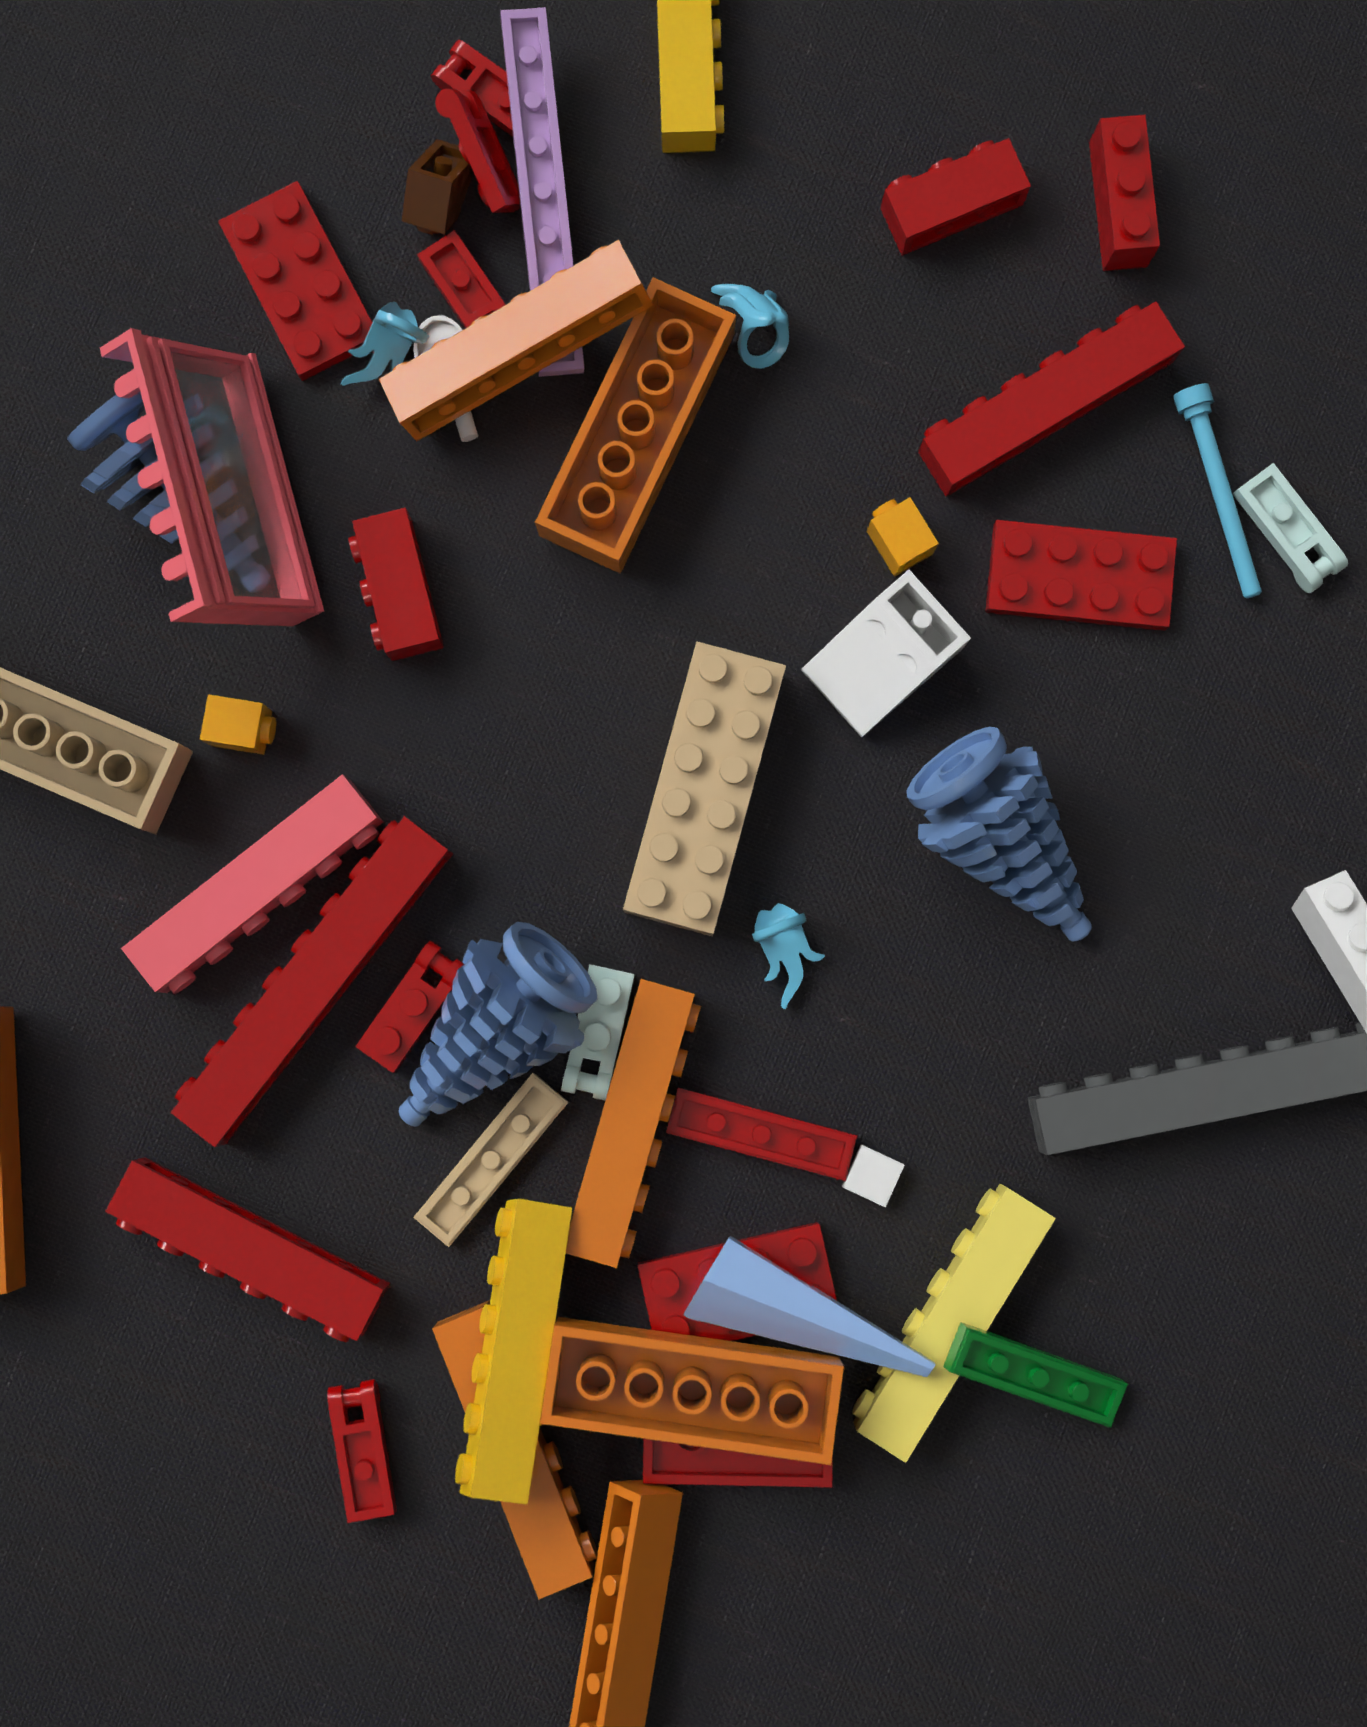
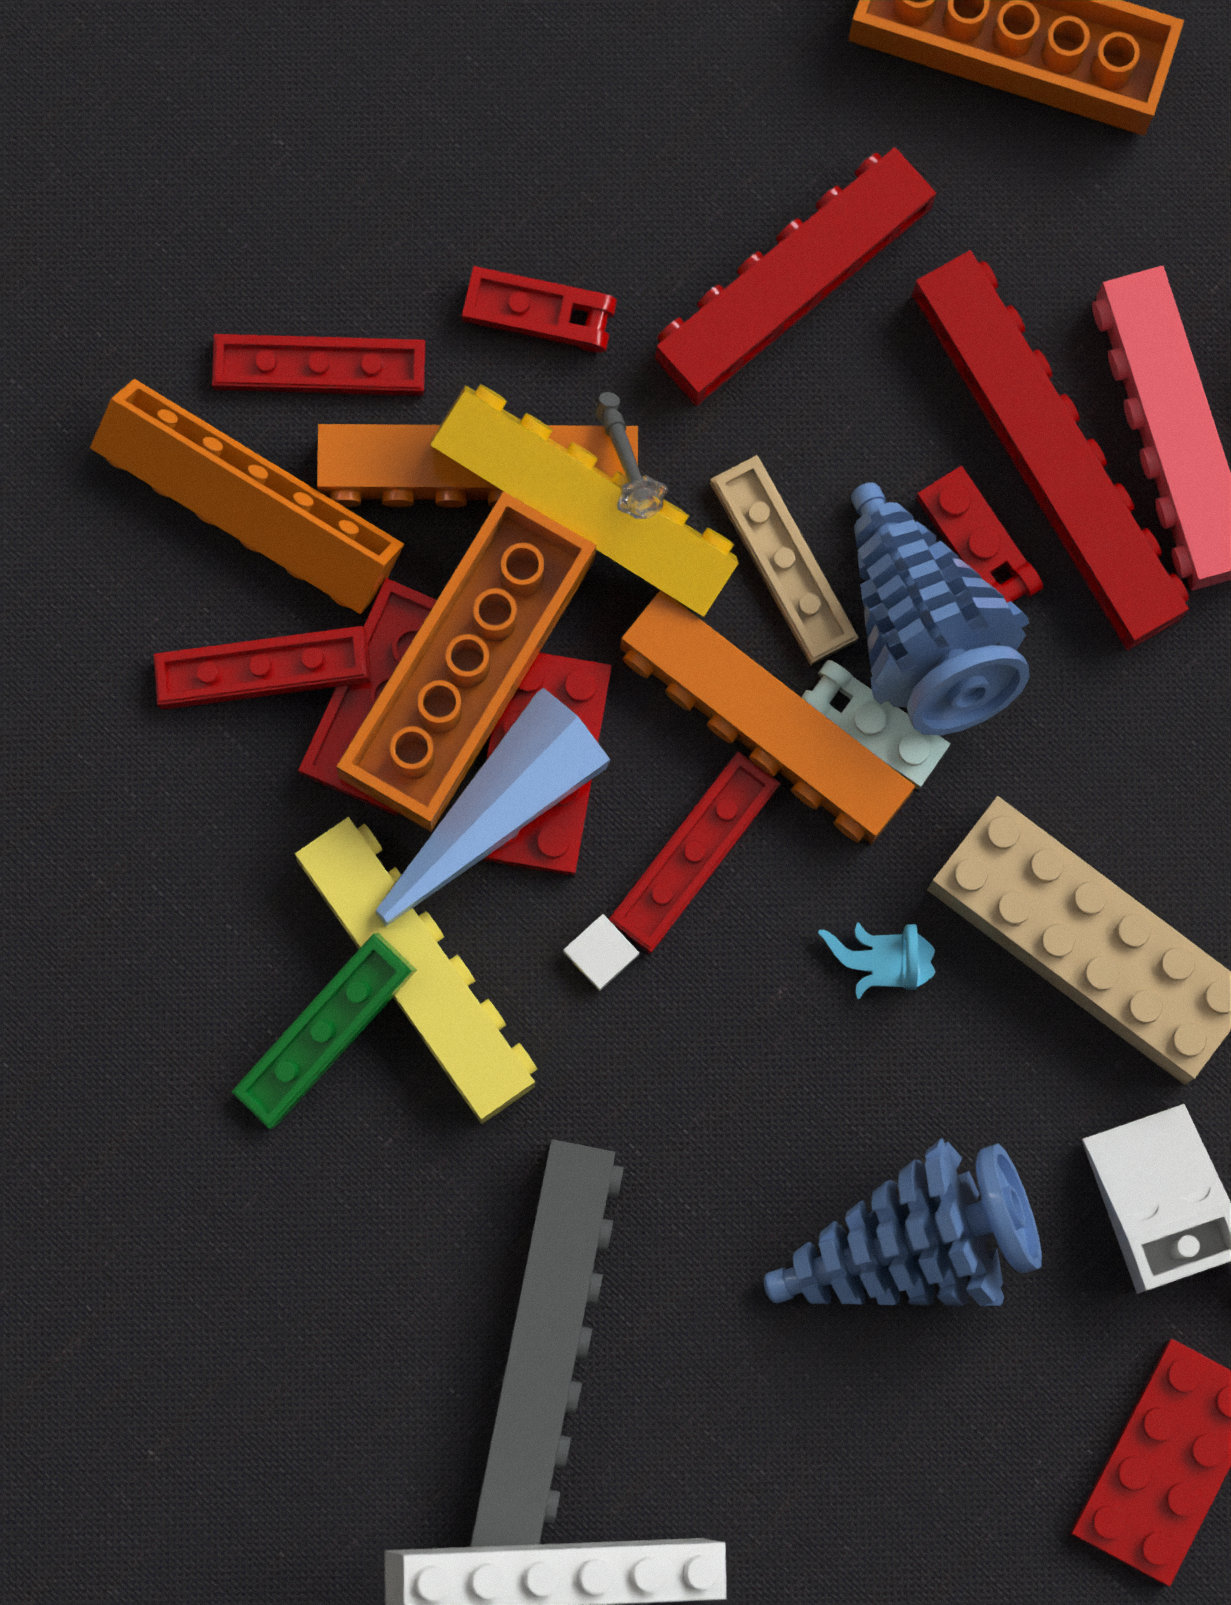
camera: 105 degrees right, 5 degrees down
(482, 1615) = (318, 364): none -> red tile
(498, 1306) = (642, 495): none -> piece
(759, 1554) = (262, 667): none -> red tile

